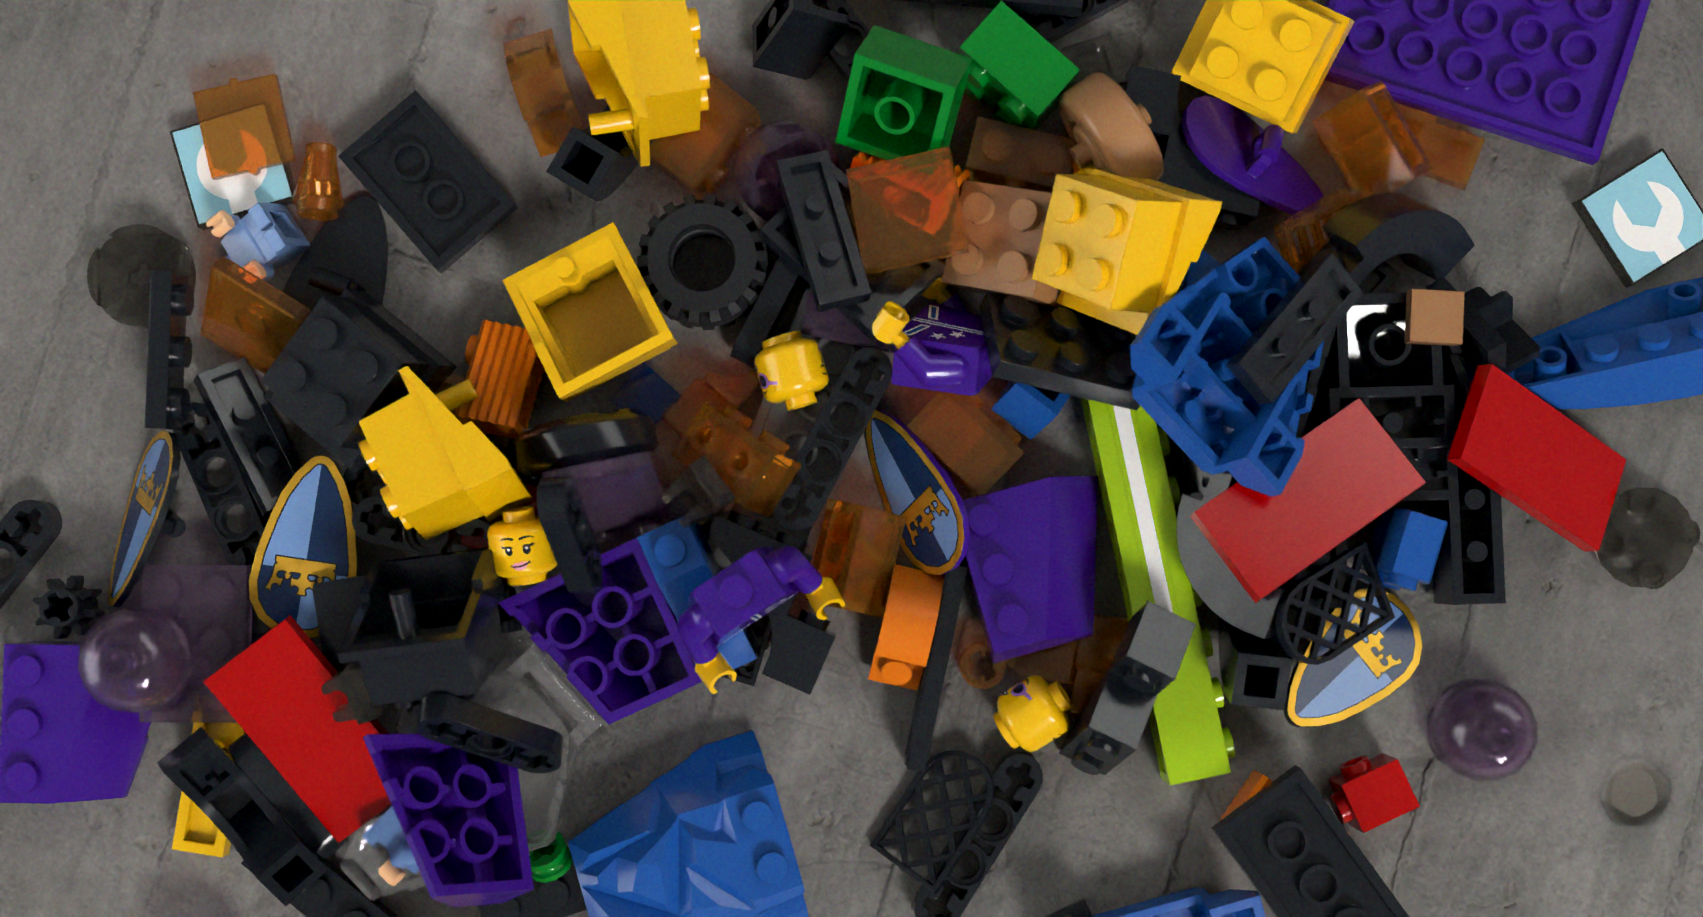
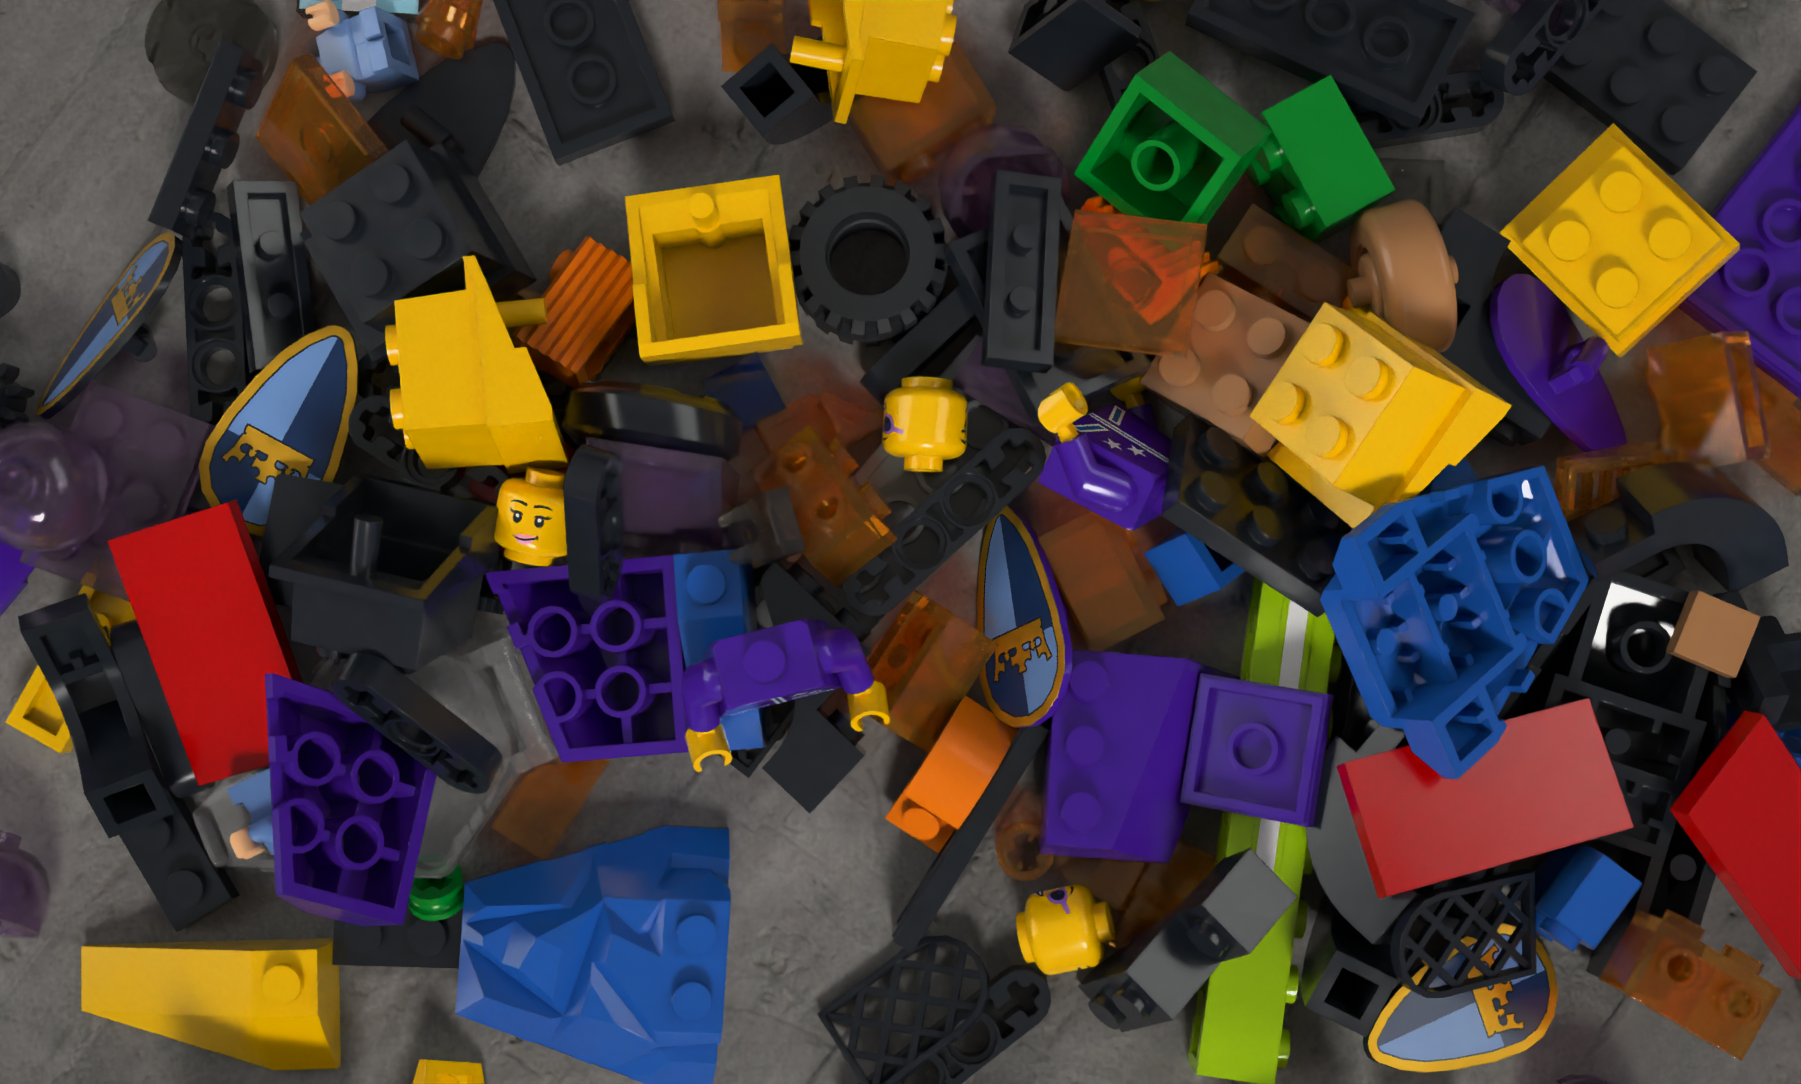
camera: 30 degrees right, 0 degrees up
(352, 684) = (277, 607): clear smoke tile -> none
(609, 761) = (548, 804): none -> clear orange slope
(1127, 525) = (1257, 749): none -> dark purple tile
(1295, 329) = (1543, 588): black plate -> none
(1509, 582) = (1691, 983): none -> clear orange brick

